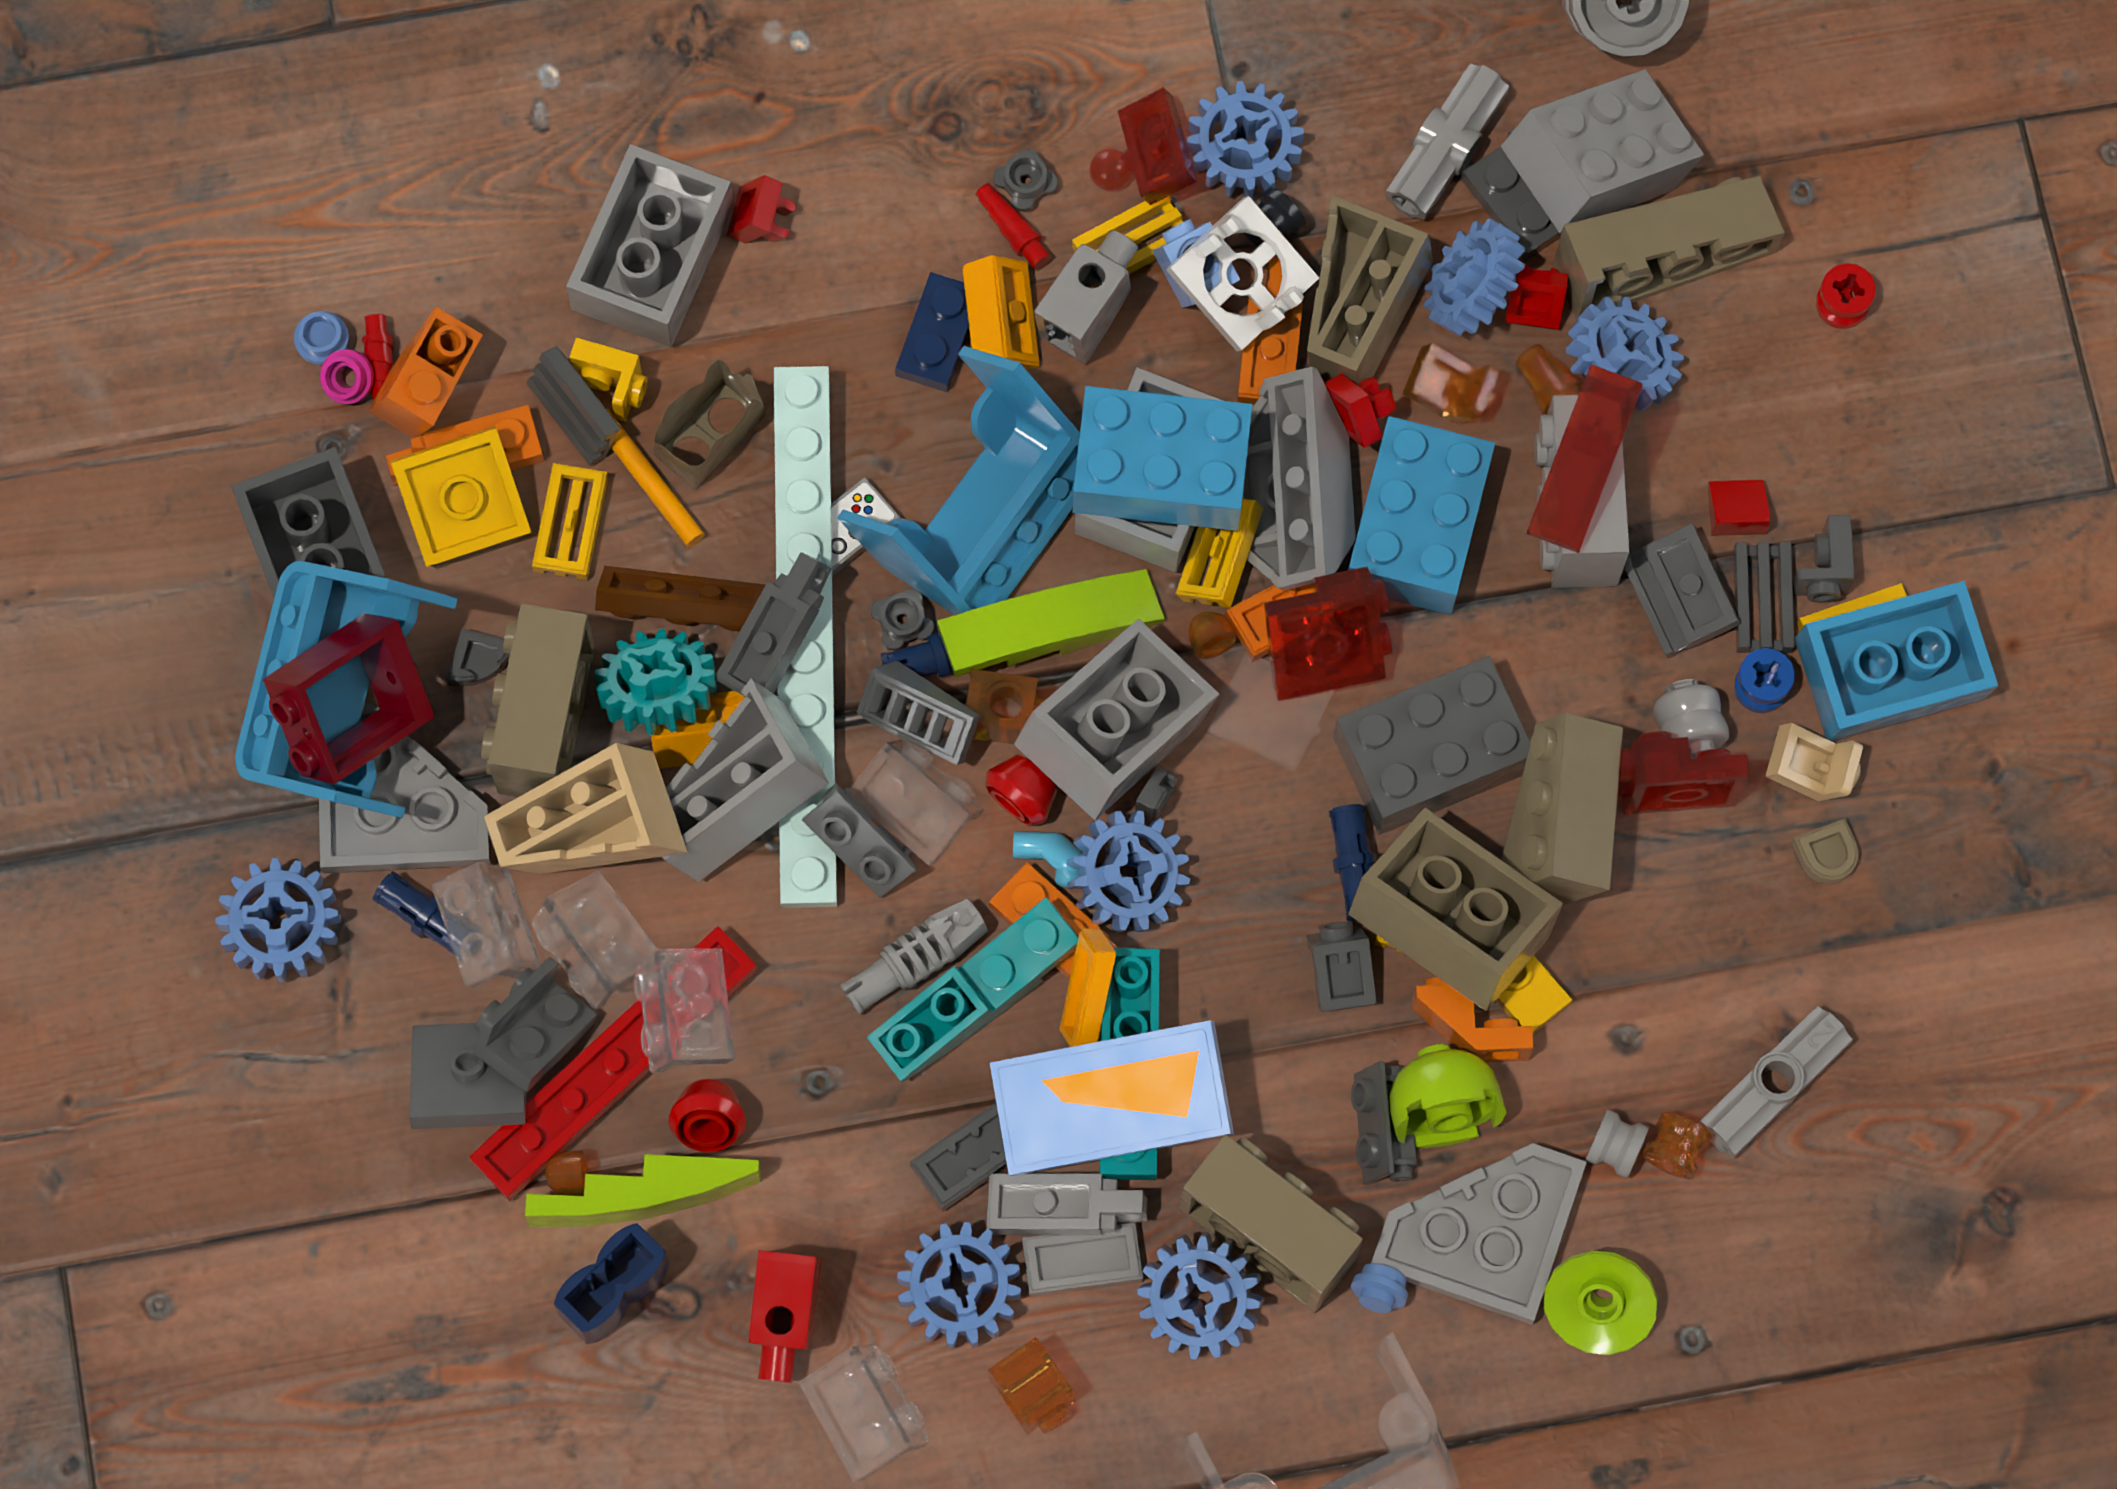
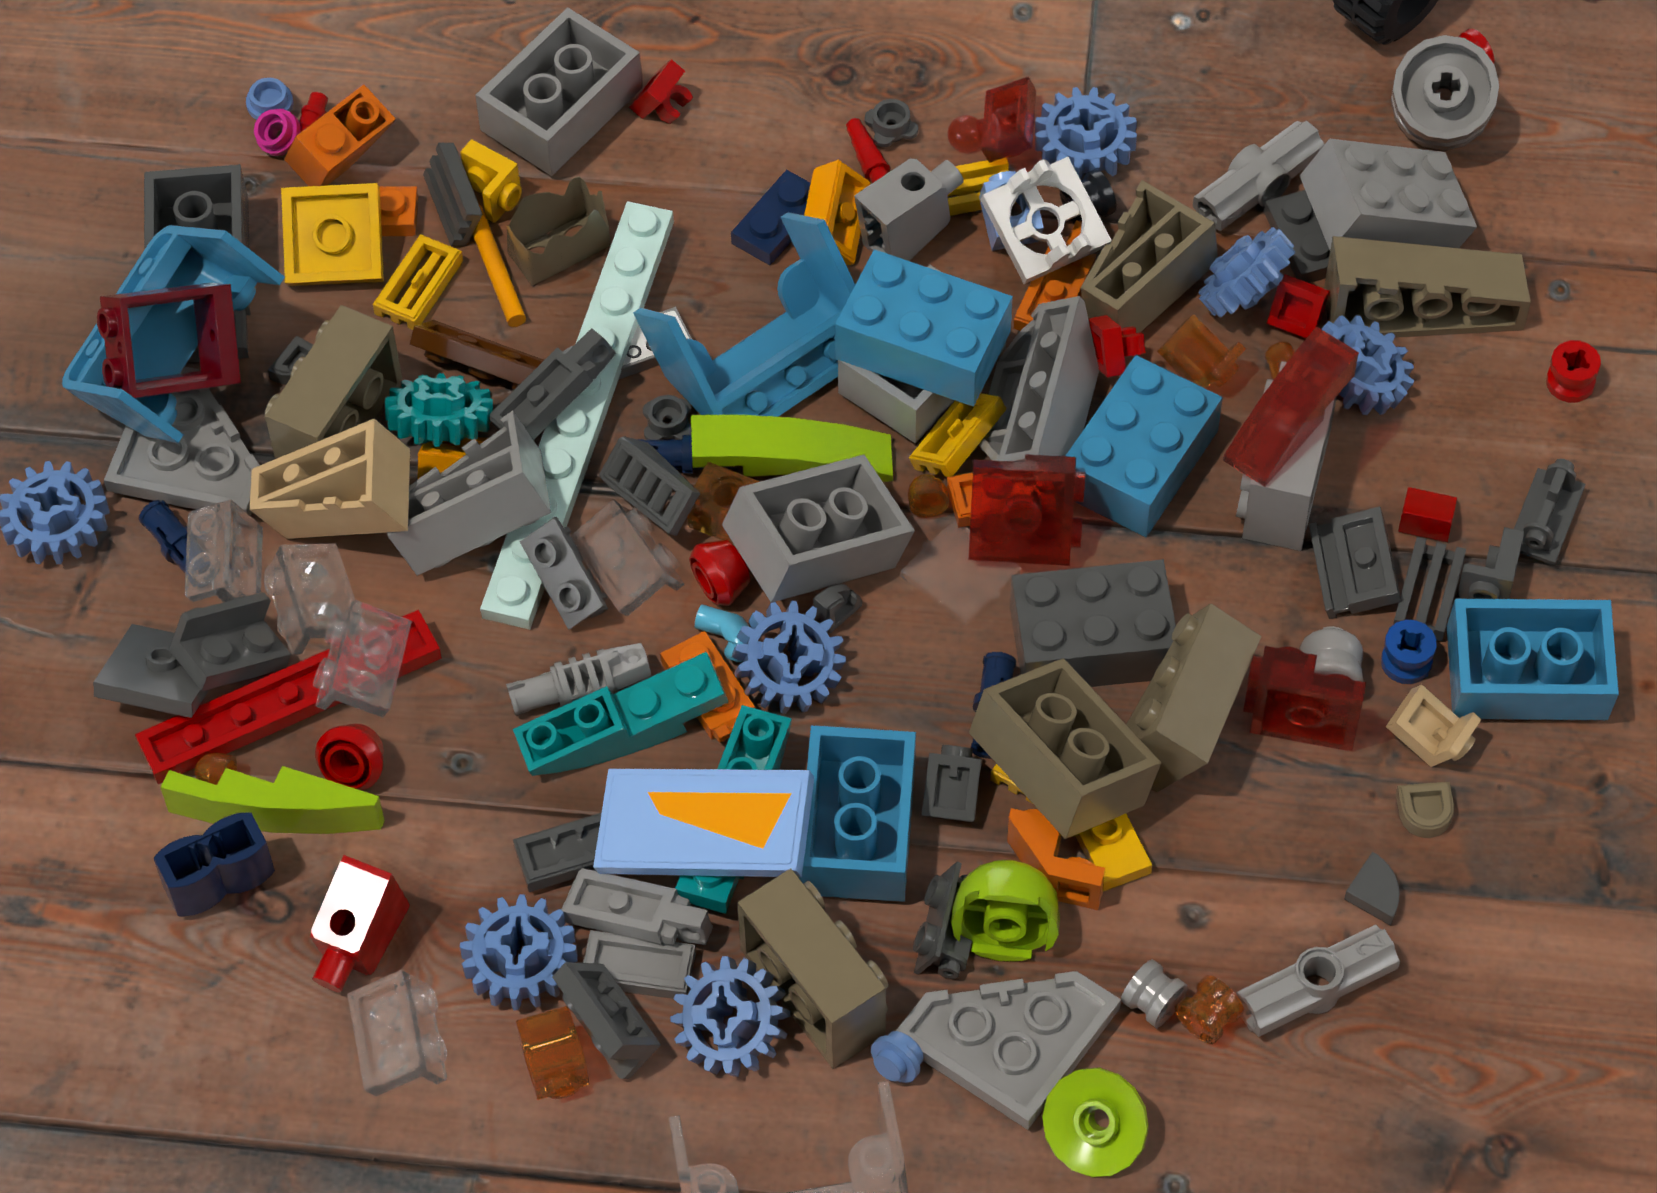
camera: 20 degrees right, 15 degrees down
(1077, 1332) = (607, 1016): none -> dark grey bracket
(1087, 988) = (719, 727): light orange tile -> none
(1263, 1030) = (860, 812): none -> dark azure brick
(1803, 960) = (1375, 889): none -> dark grey tile
(1862, 473) = (1549, 510): none -> dark grey hinge

